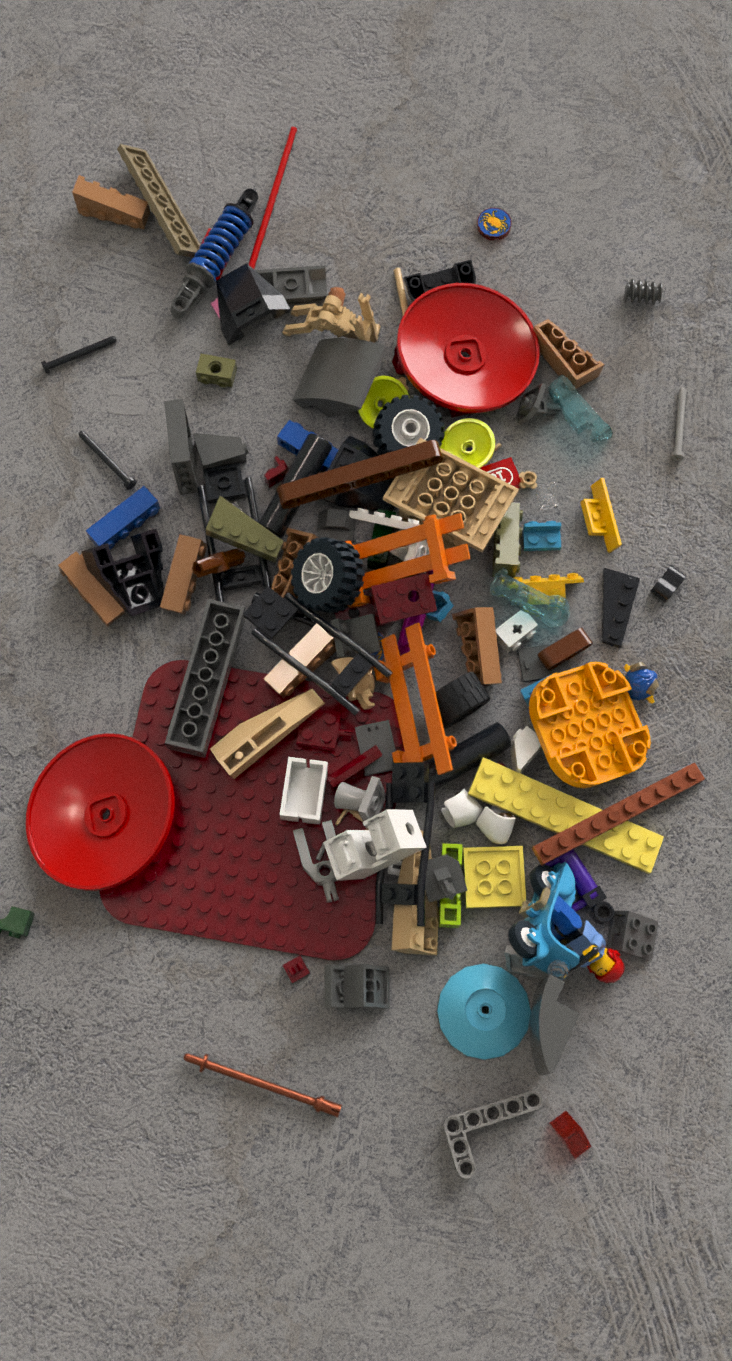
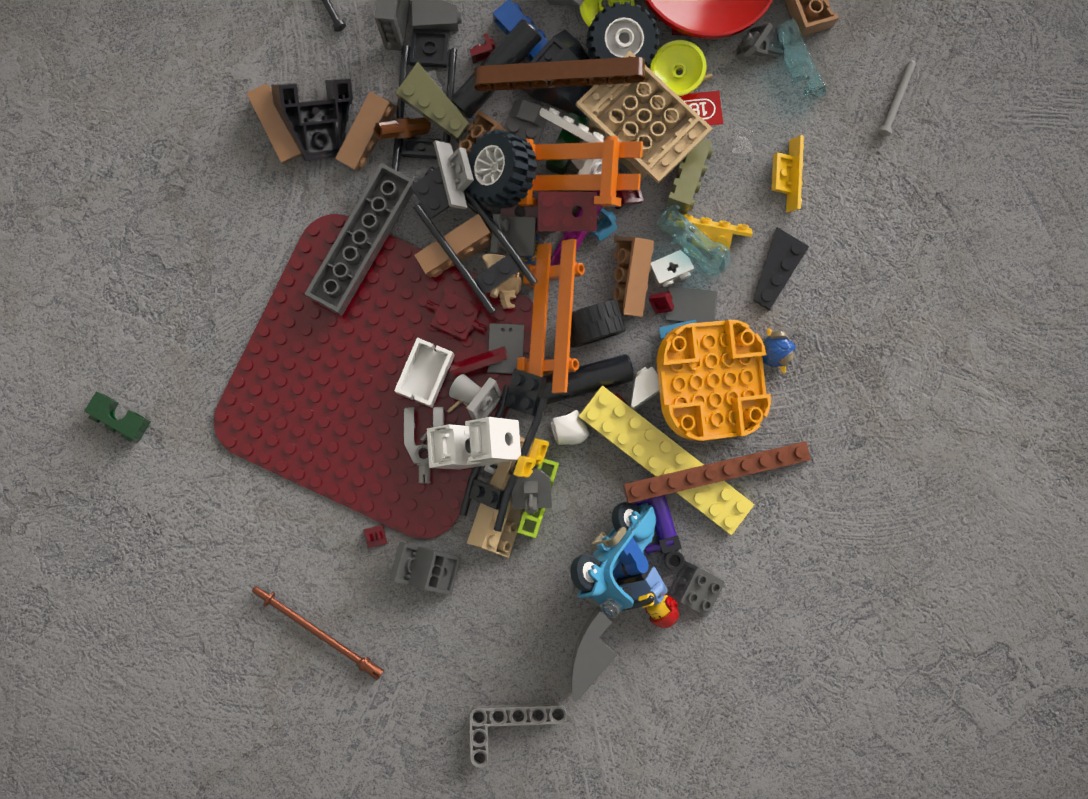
camera: 20 degrees right, 10 degrees up
(68, 809) = (201, 337): red dish -> none
(124, 518) = (323, 61): blue brick -> none
(261, 733) = (401, 306): tan wedge -> none
(284, 588) = (455, 172): none -> light grey bracket
(438, 844) = (536, 456): none -> yellow tile
(461, 573) = (629, 197): none -> dark red bracket
(480, 1033) = (541, 599): medium azure dish -> none
(494, 877) = (582, 500): light yellow plate -> none
(496, 824) = (597, 451): white piece -> none
(516, 665) = (661, 302): none -> dark red tile
(528, 475) = (728, 114): tan plate -> none
(541, 536) = (725, 179): dark azure bracket -> none
(564, 649) = (713, 298): reddish brown beam -> none
(570, 1134) = (584, 752): clear red slope -> none
(668, 583) = (835, 259): black axle -> none

